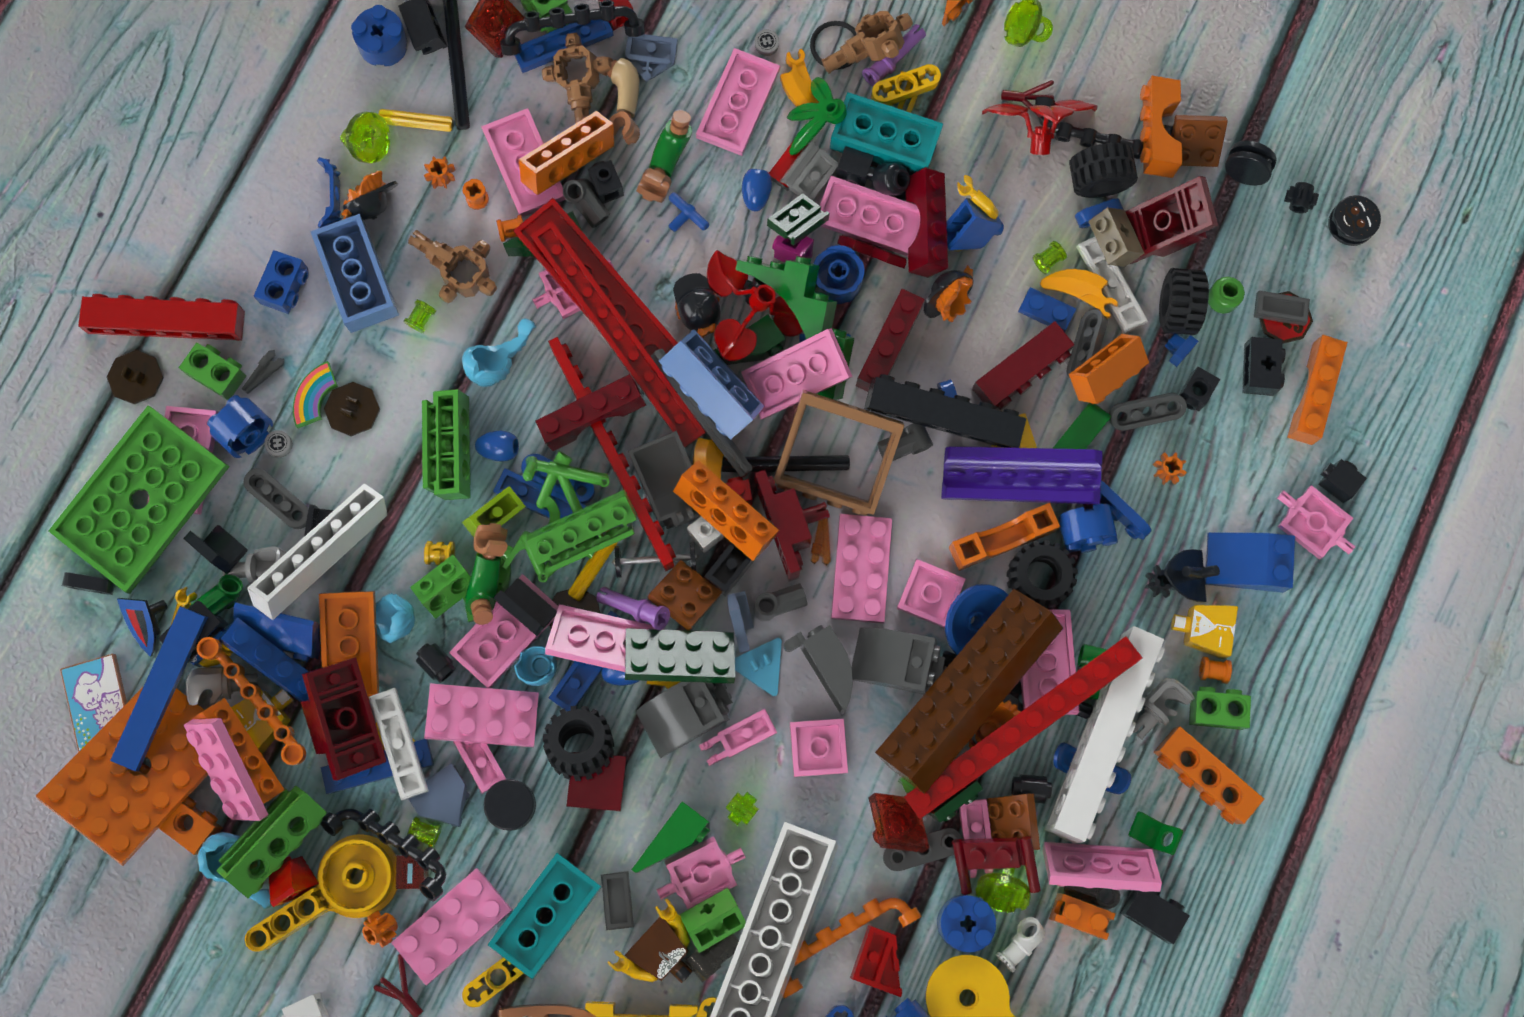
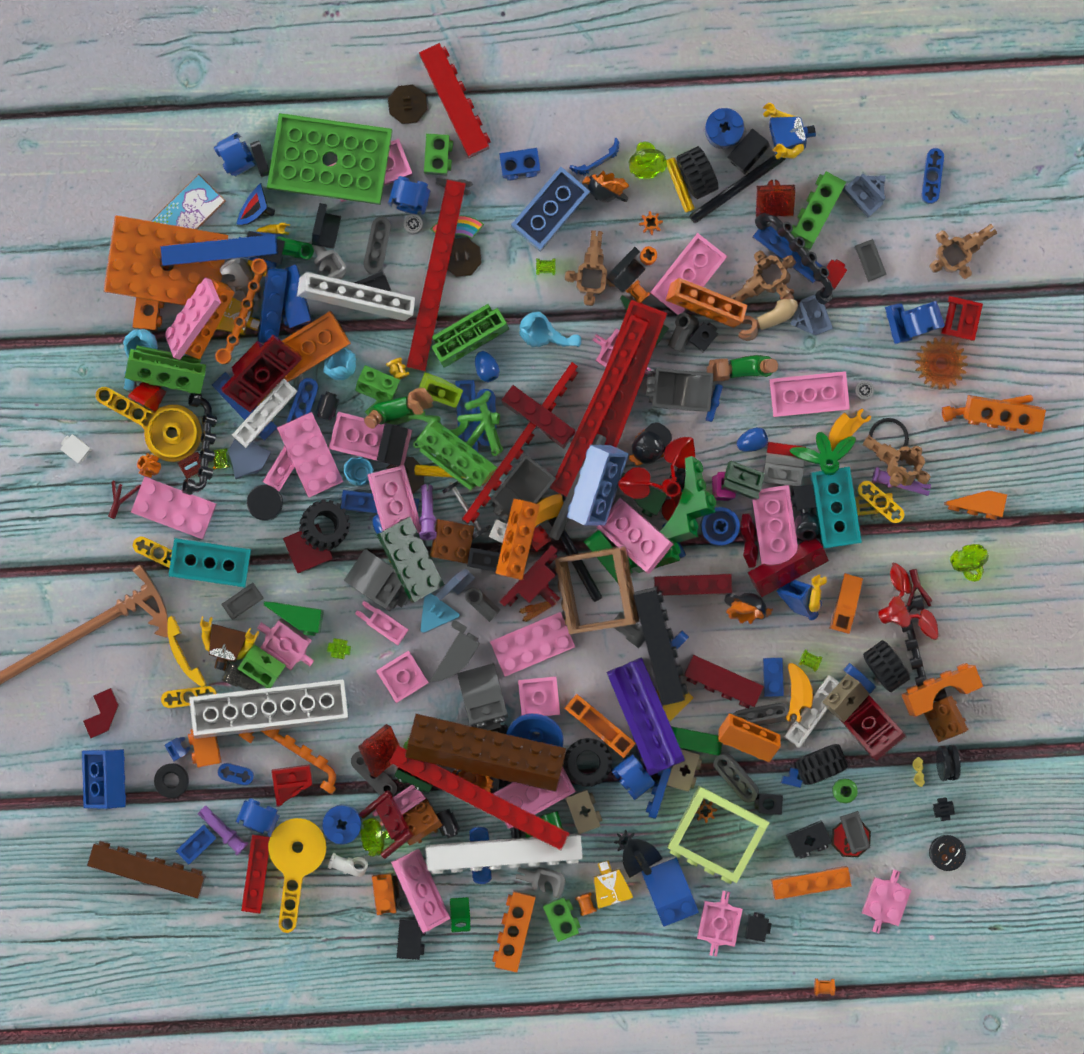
camera: 65 degrees right, 10 degrees up
(62, 610) = (235, 154): none -> blue brick
(355, 448) = (436, 275): none -> red plate
(408, 685) = (303, 396): none -> blue plate
(411, 85) = (697, 172): none -> black tyre
(478, 226) = (626, 271): none -> black panel
(652, 237) = (680, 390): none -> dark grey piece
(814, 423) = (599, 542): none -> green beam
(1007, 184) = (846, 604): none -> orange slope
(1085, 618) = (582, 822): none -> dark tan brick
(1122, 469) = (688, 781): none -> dark tan brick
(1168, 490) = (695, 859): none -> yellowish green windscreen
(1247, 208) = (919, 776): none -> light yellow piece
(1379, 318) = (886, 901): none -> bright pink plate
(1451, 439) = (824, 987): none -> orange bush

